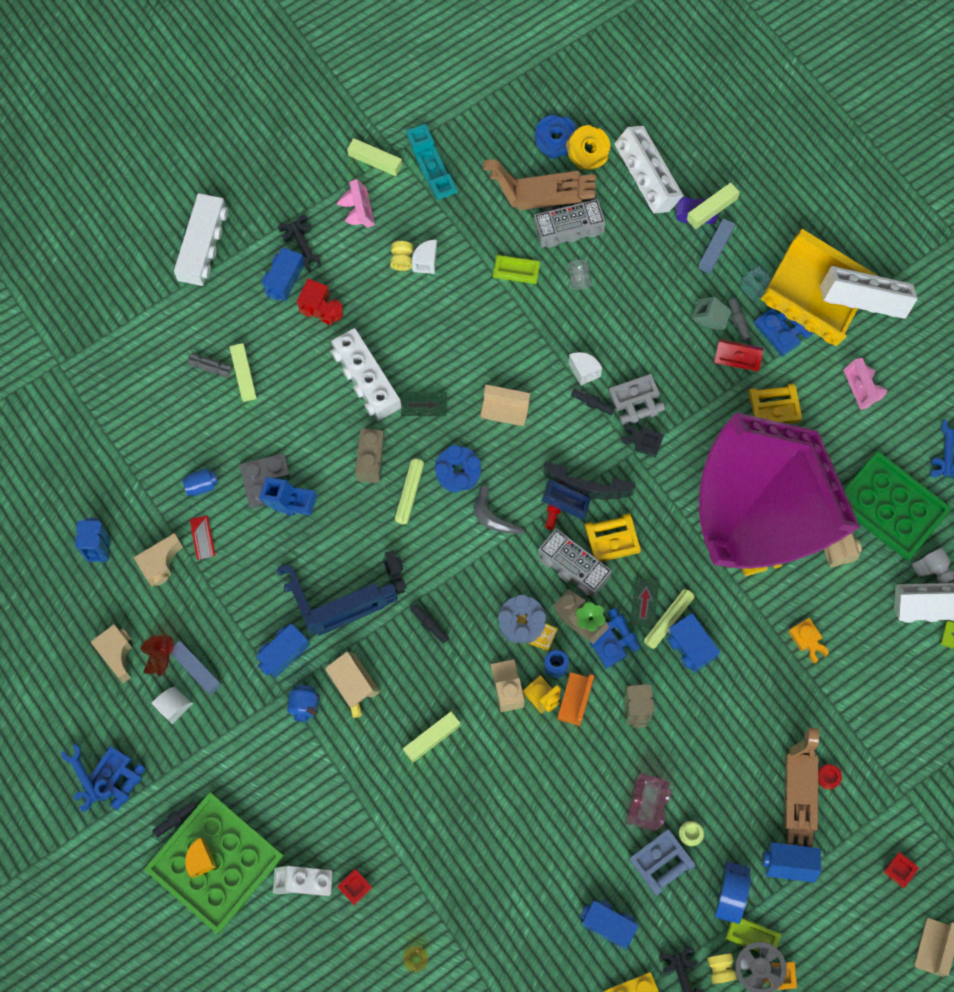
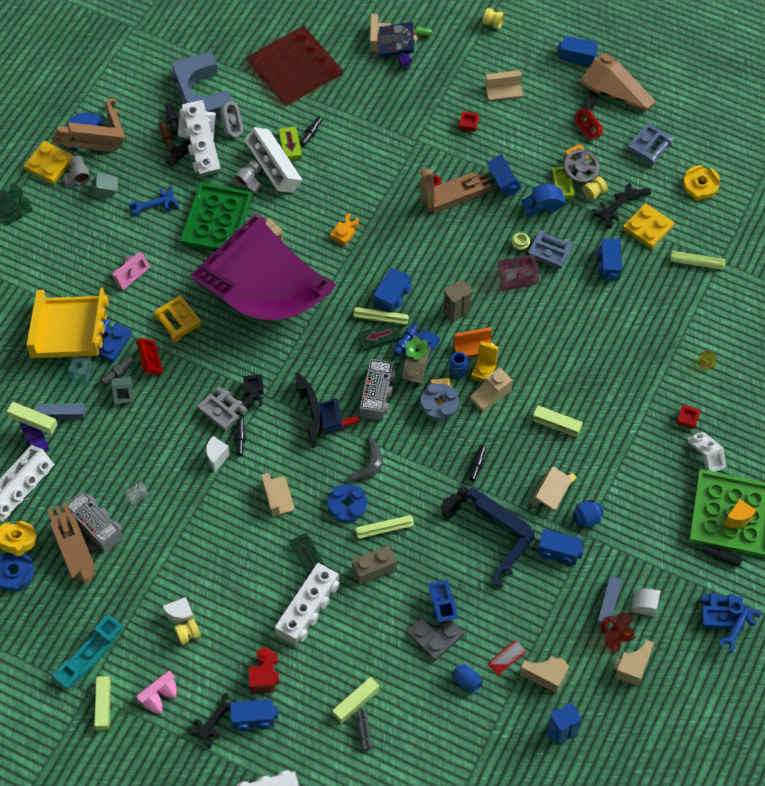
camera: 120 degrees left, 10 degrees down
(516, 269) = (153, 544): lime tile -> none
(615, 544) = (346, 371): yellow plate -> none
(868, 292) = (56, 287): white brick -> none

